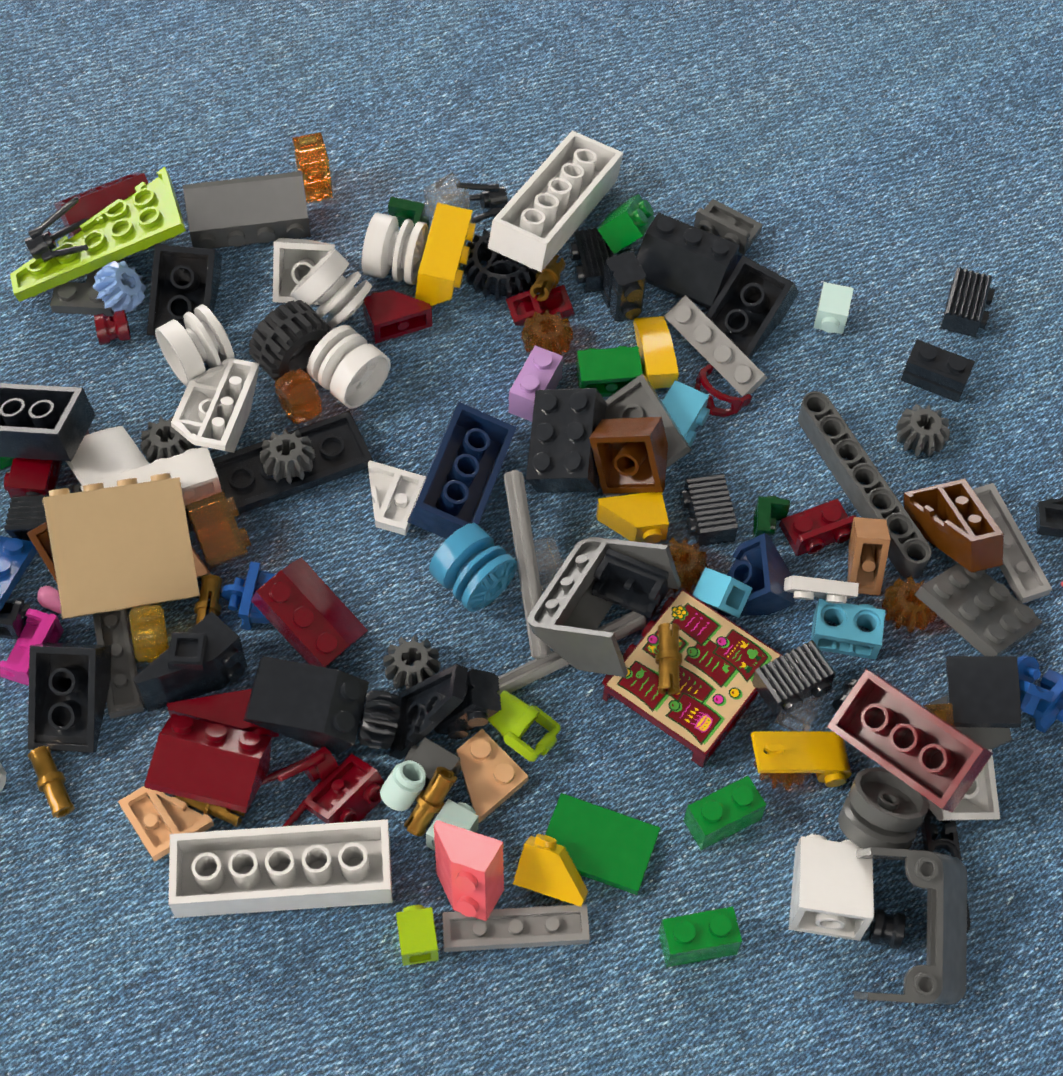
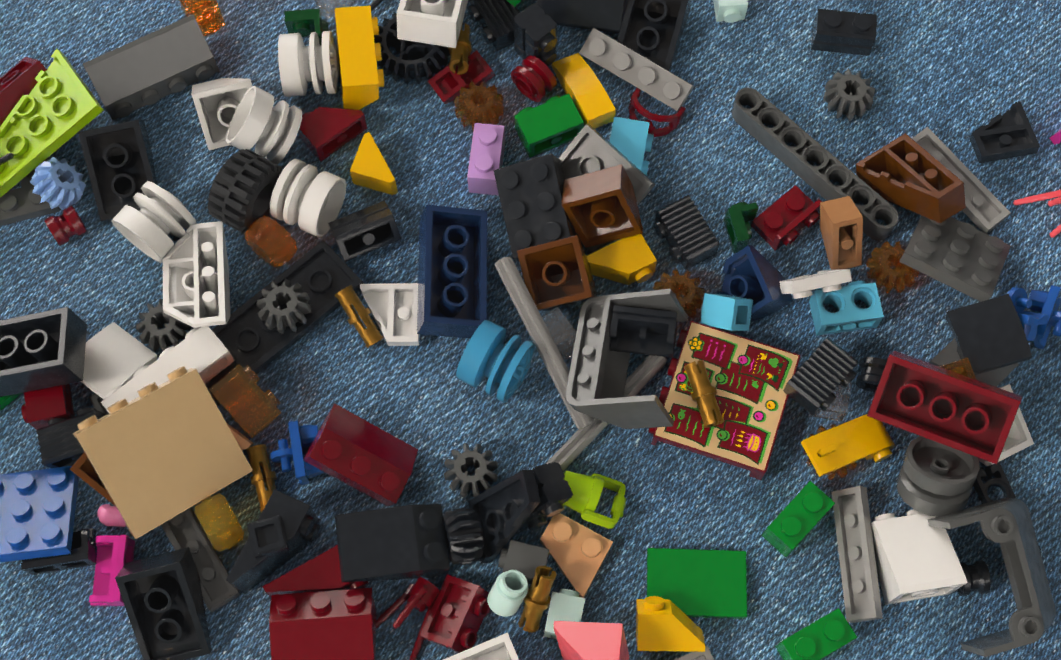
camera: 15 degrees left, 10 degrees up
(352, 468) = (347, 298): none -> pearl gold pin
(392, 413) = (364, 231): none -> black brick
(419, 361) = (371, 169): none -> yellow slope
(564, 504) = (557, 273): none -> reddish brown slope
(609, 325) = (533, 78): none -> dark red wheel
(773, 867) = (856, 555): none -> light grey plate

